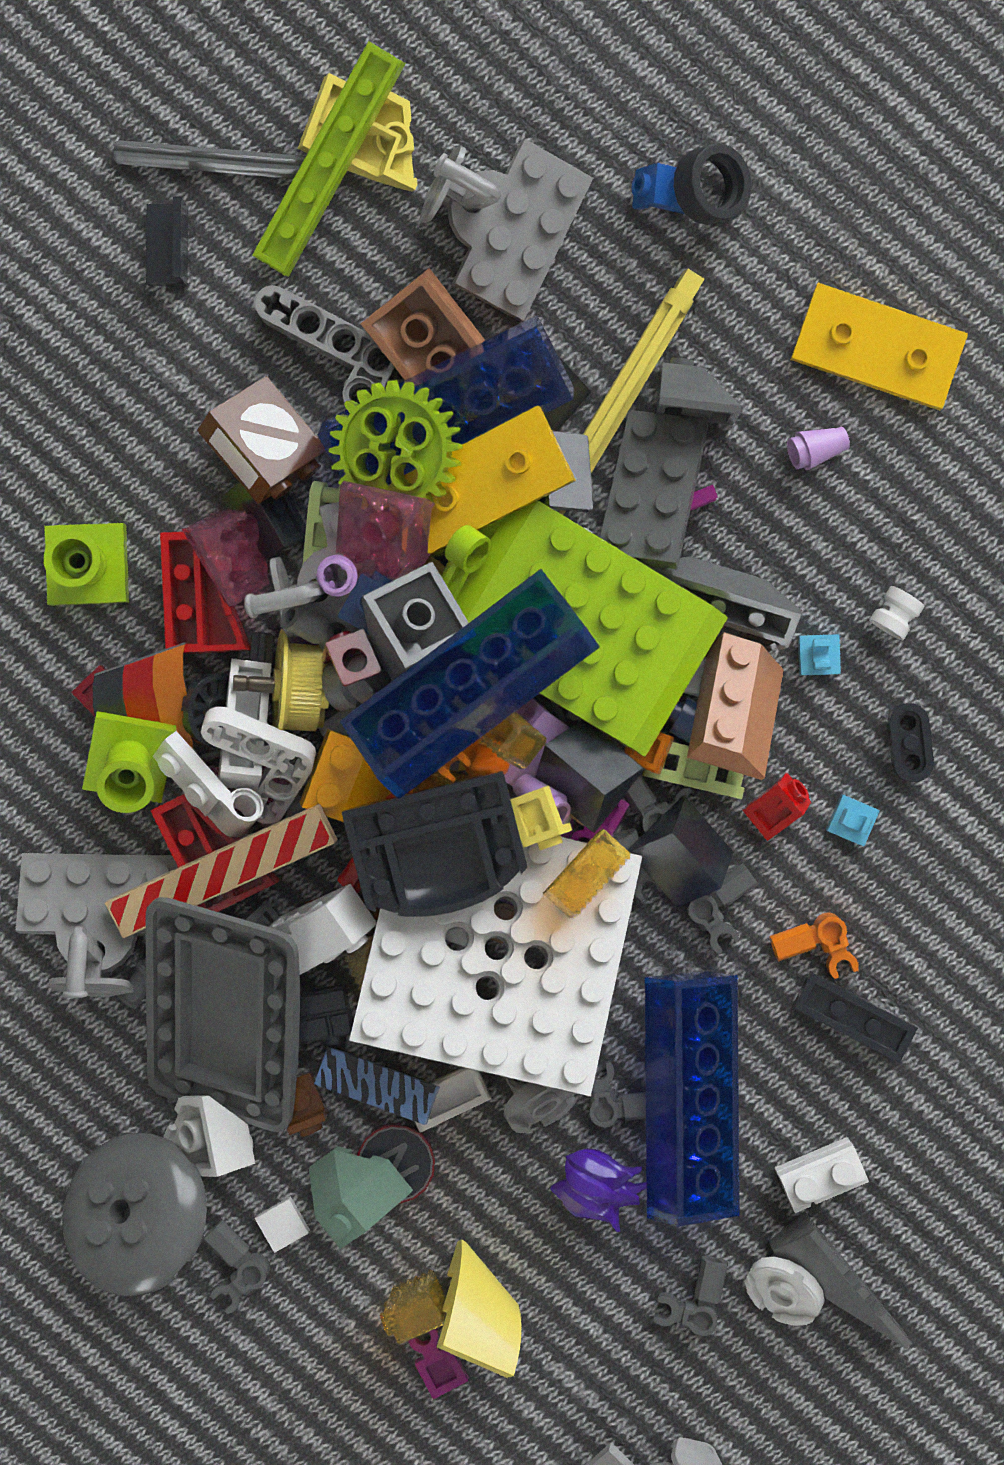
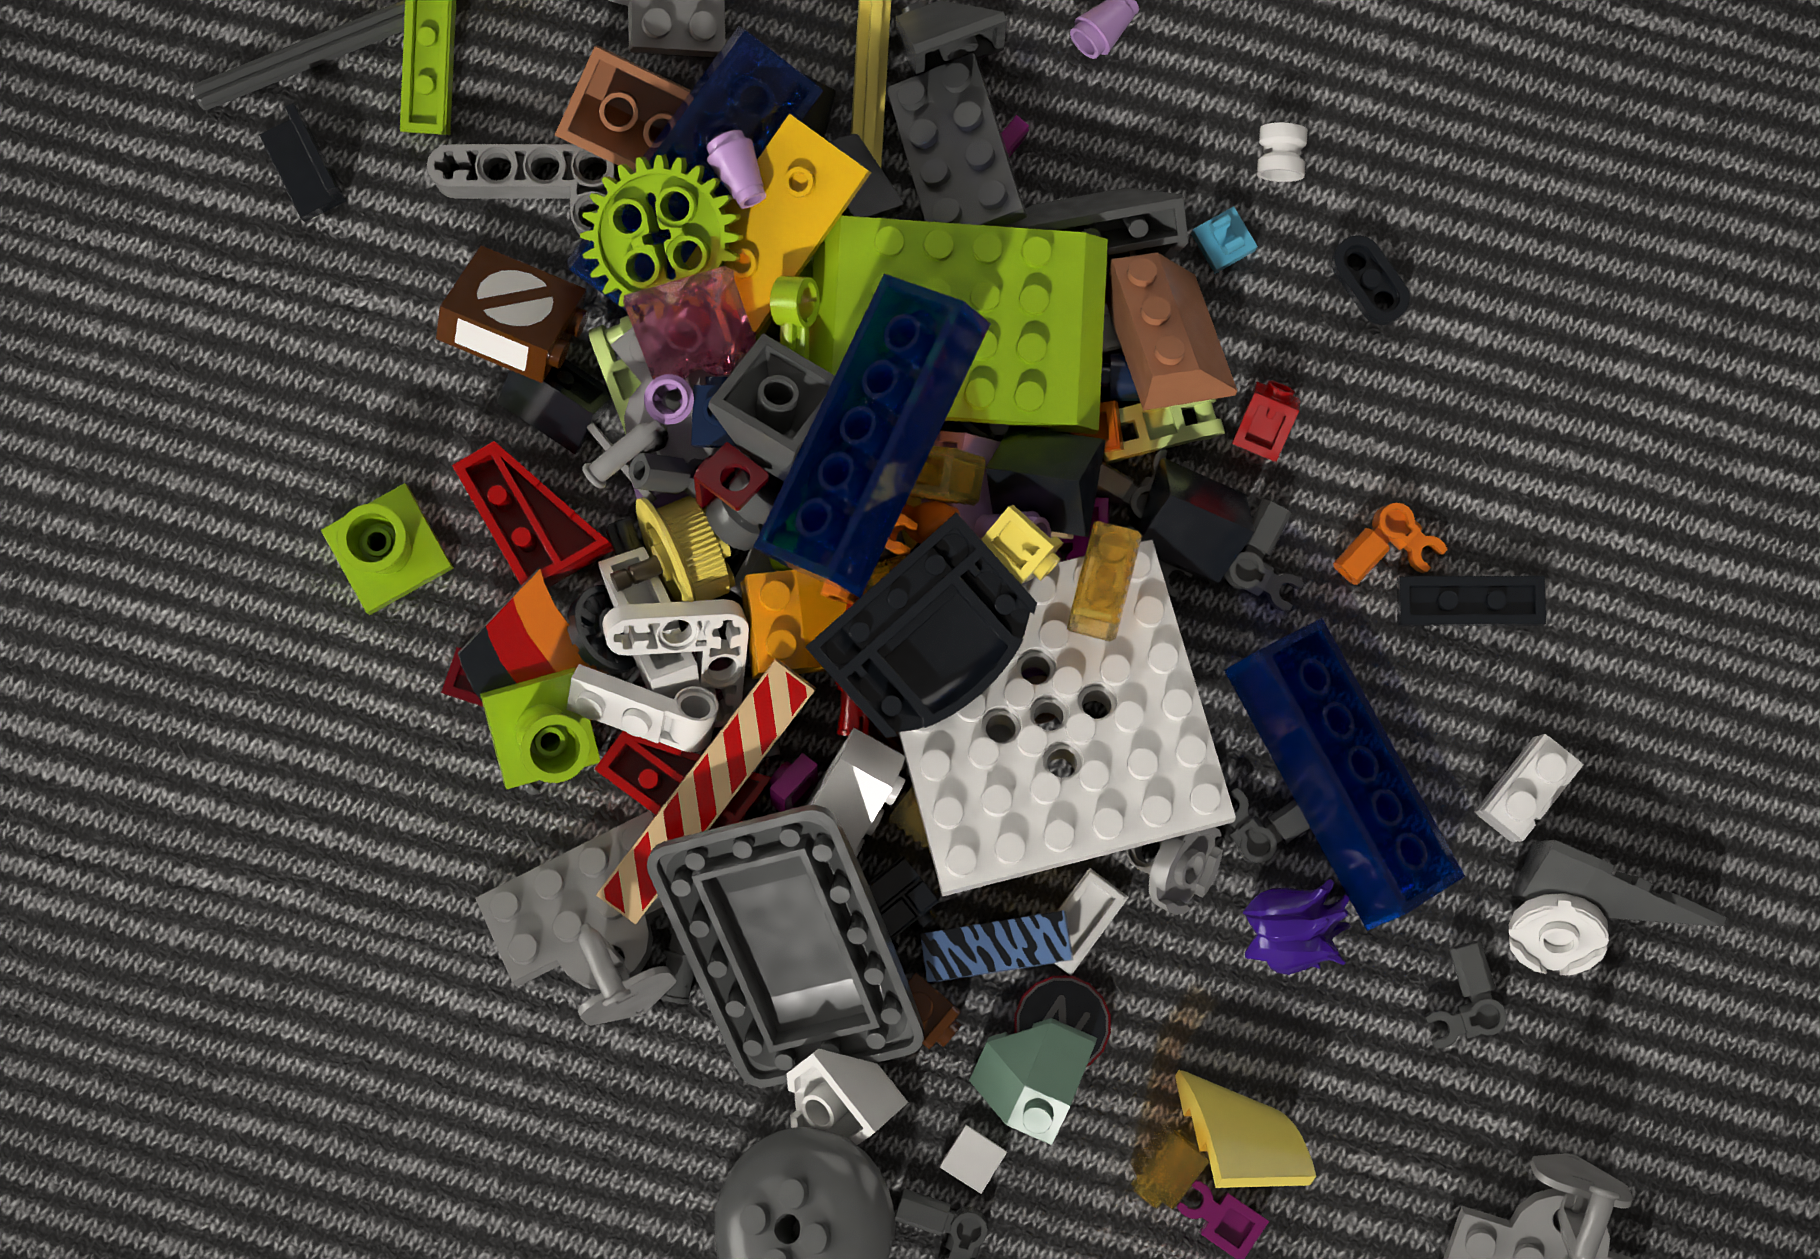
camera: 30 degrees left, 5 degrees down
(230, 553) = (537, 449): clear pink slope -> none
(288, 895) = (793, 783): none -> magenta plate
(477, 427) = (737, 167): none -> lavender cone
(852, 820) = (1354, 394): medium azure tile -> none

